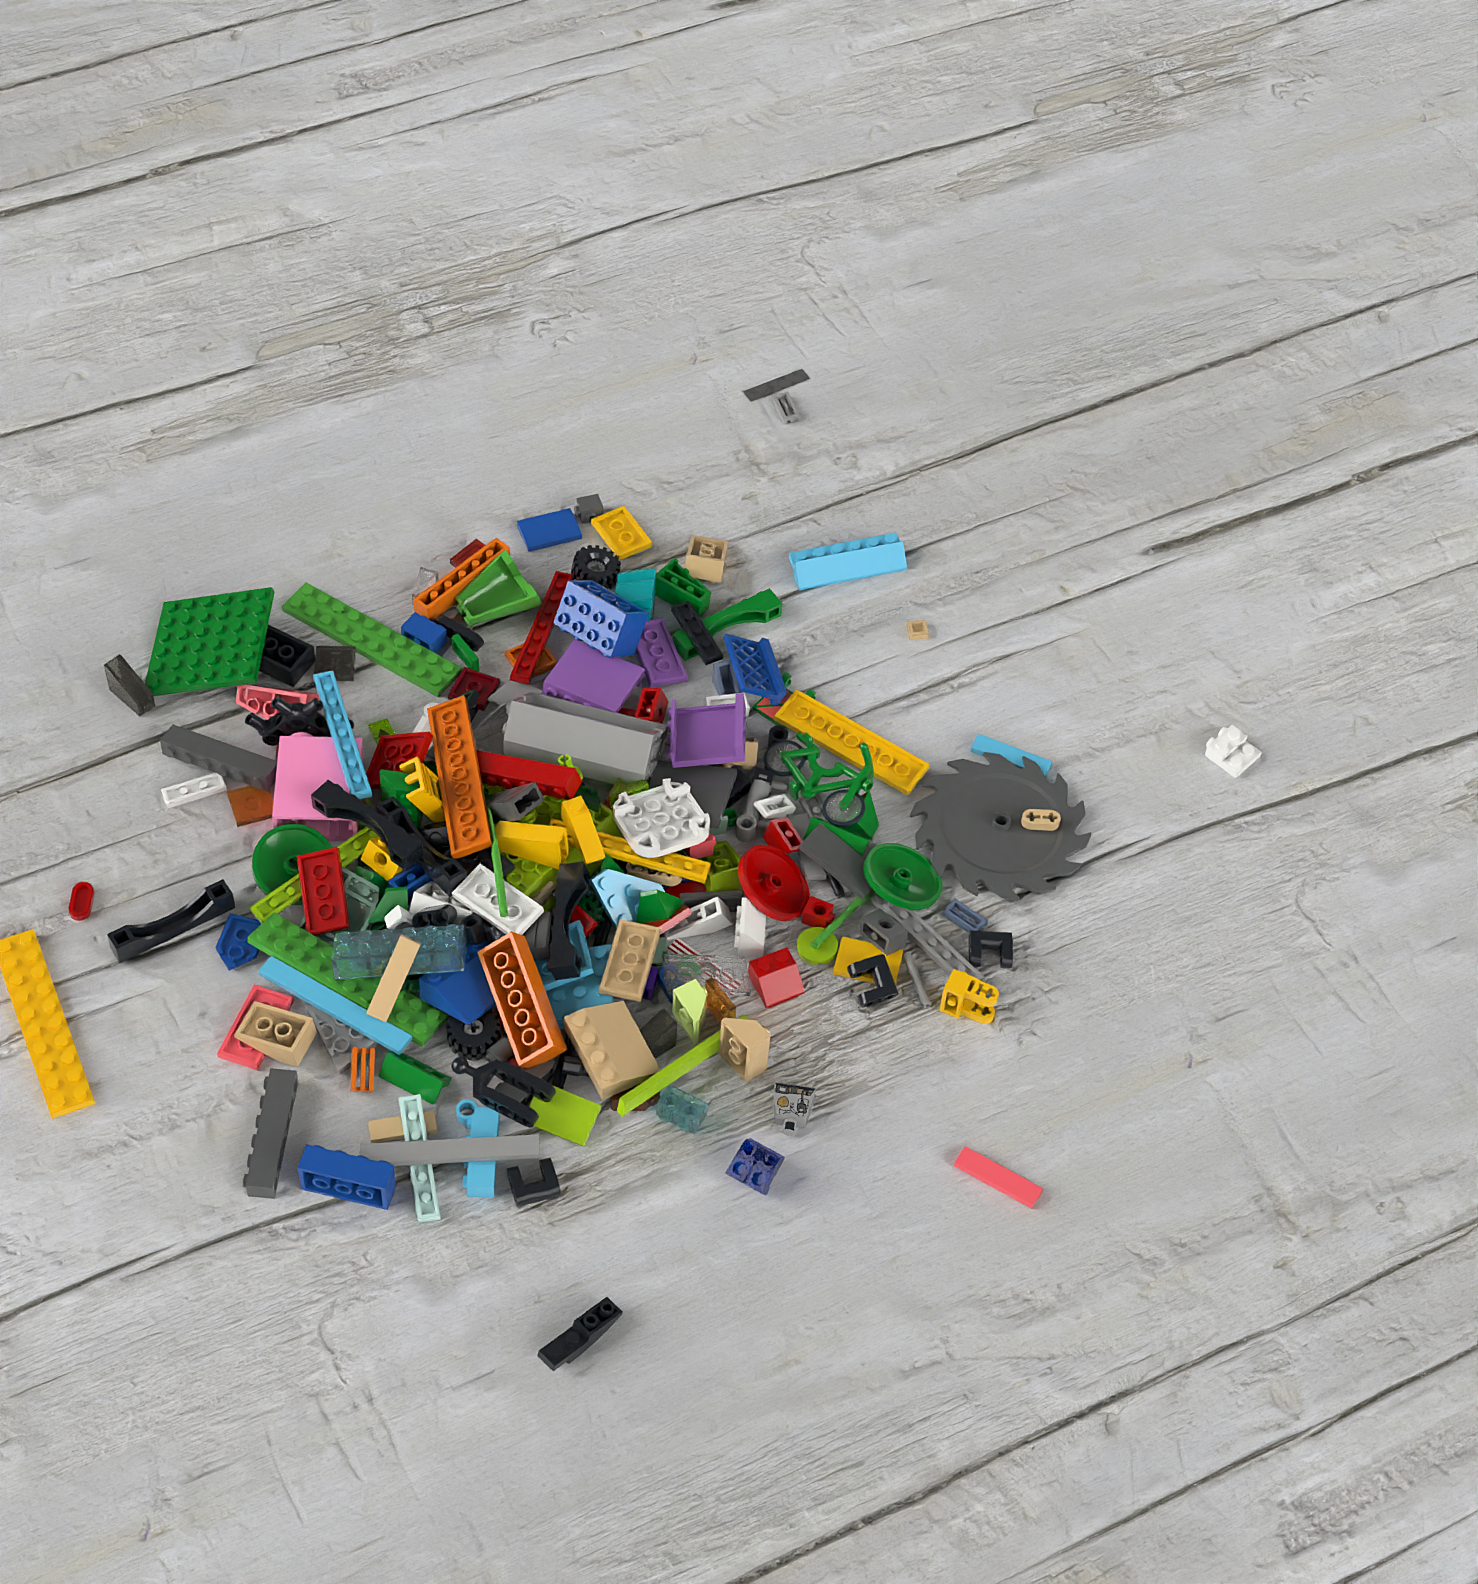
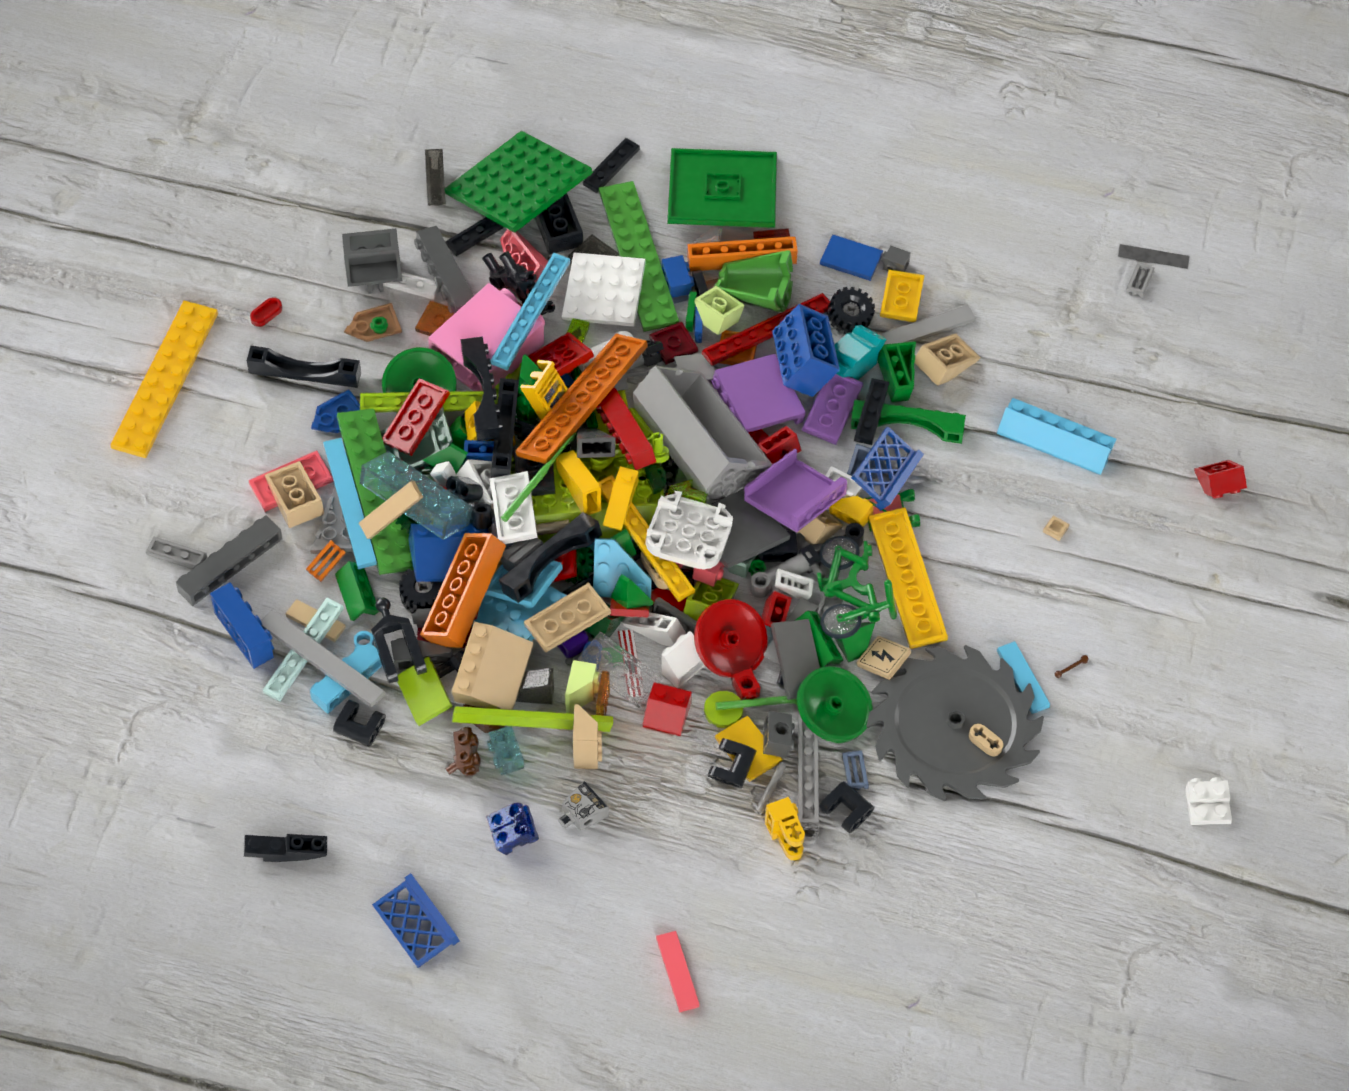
camera: 45 degrees right, 5 degrees up
(141, 790) = (372, 258): none -> dark grey piece
(195, 844) = (361, 322): none -> medium nougat tile
(201, 844) = (379, 328): none -> green plate
(210, 711) = (473, 235): none -> black tile
(213, 1164) = (175, 553): none -> light grey tile
(273, 577) = (611, 165): none -> black tile
(376, 682) = (604, 289): none -> white plate
(390, 540) = (722, 188): none -> green tile
(486, 663) = (698, 327): none -> blue tile
(491, 635) = (718, 310): none -> yellowish green slope
(655, 1140) = (467, 758): none -> reddish brown brick
(668, 539) = (930, 326): none -> light grey tile
(758, 1287) = (426, 906): none -> blue fence
(760, 719) = (852, 510): none -> yellow slope
(898, 815) = (883, 657): none -> tan tile
(997, 511) = (1221, 478): none -> red slope
(1038, 712) = (1084, 659): none -> reddish brown hinge

